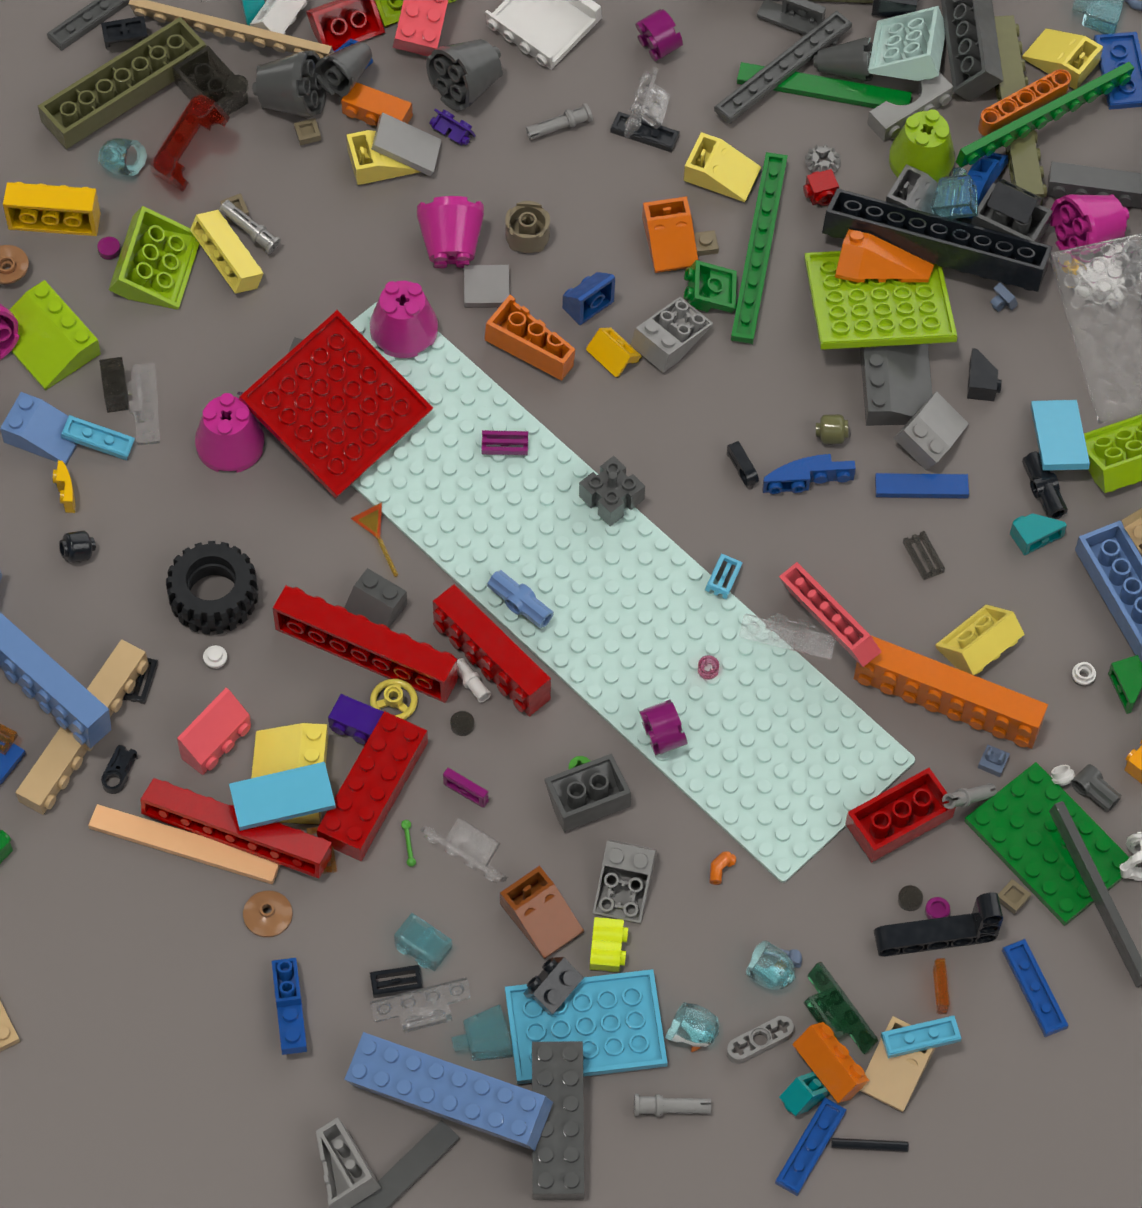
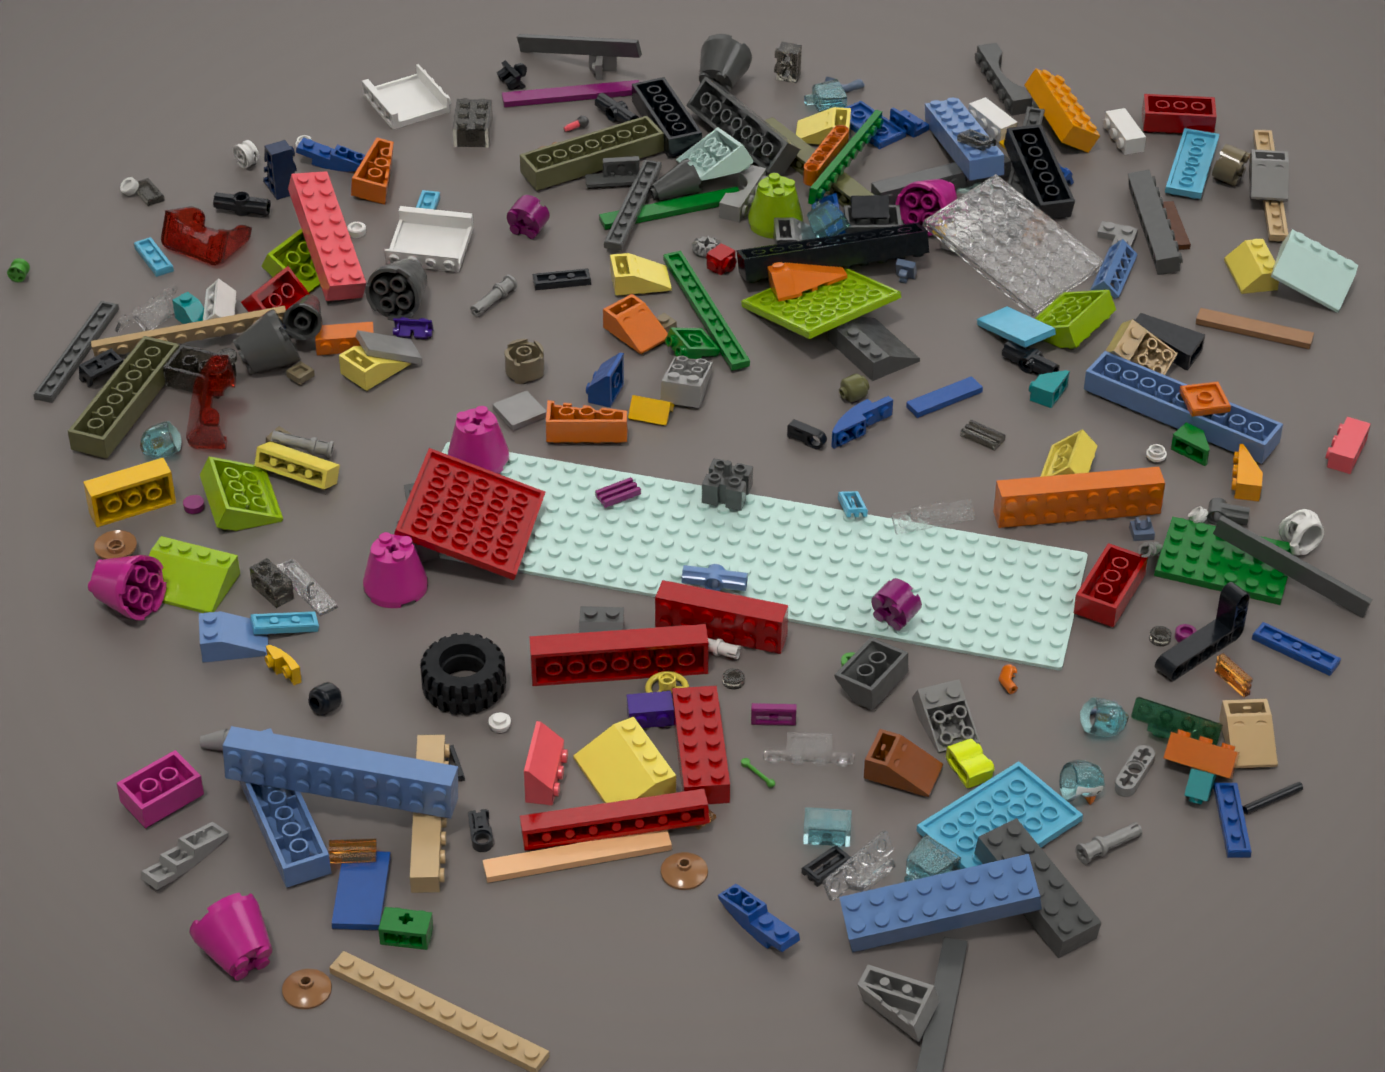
camera: 30 degrees left, 20 degrees down
(282, 796) = (640, 774): medium azure tile -> none
(371, 522) = (552, 585): clear yellow piece -> none
(450, 229) = (467, 378): dark pink cone -> none
(553, 984) = (954, 801): black bracket -> none
(649, 104) = (551, 258): clear bracket -> none
(708, 660) = (891, 555): clear pink bush -> none
(830, 614) = (958, 481): coral brick -> none
(921, 1036) = (1255, 701): medium azure tile -> none
(931, 431) = (925, 362): light grey slope -> none
(982, 378) = (931, 318): black slope -> none

